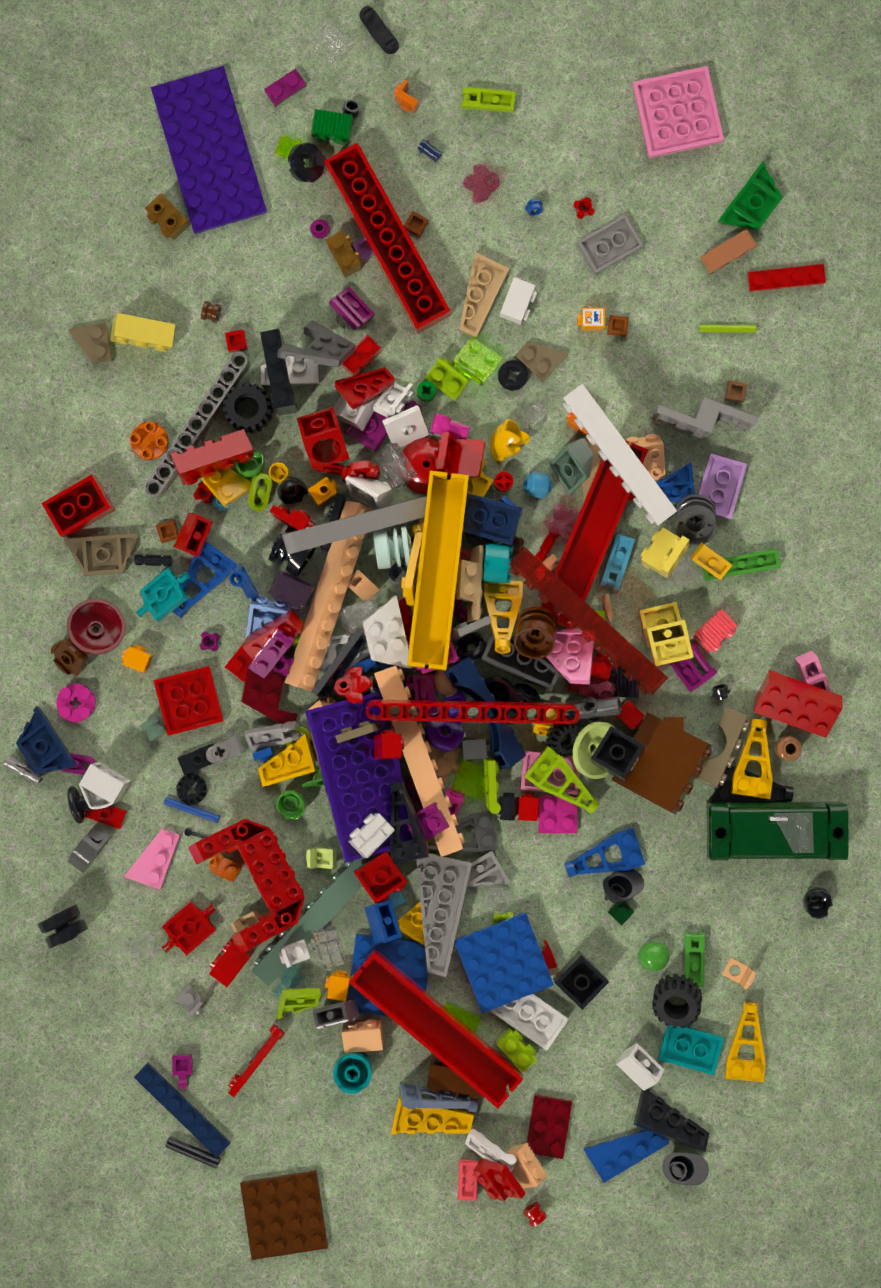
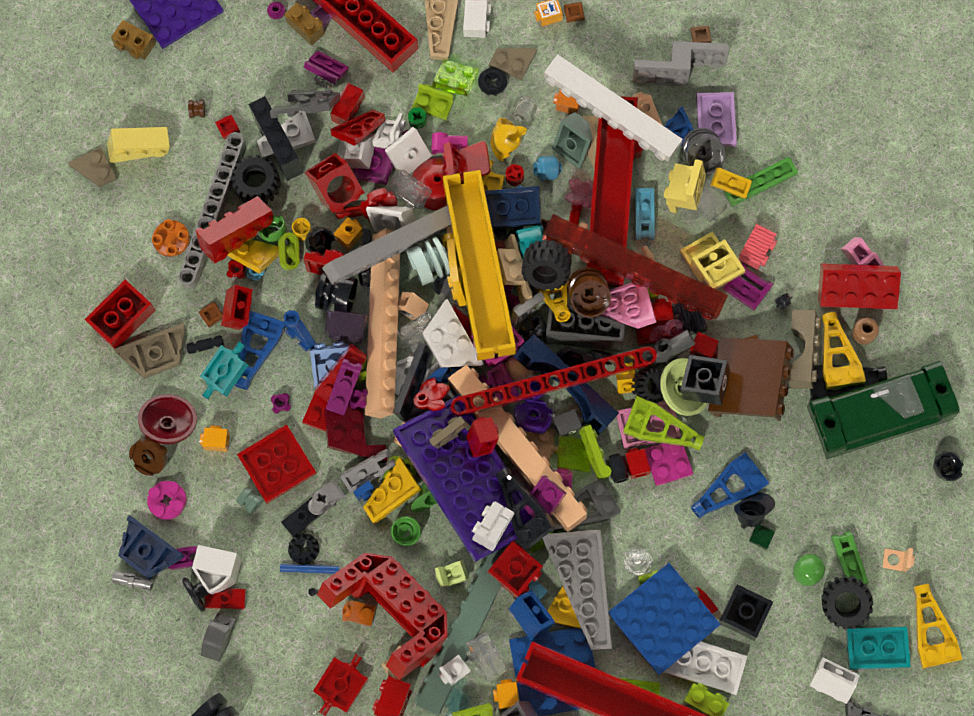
camera: 10 degrees left, 15 degrees down
(155, 860) = (287, 629): bright pink wing -> none
(487, 871) = (618, 537): light grey wing -> none
(502, 594) = (546, 265): none -> black tyre

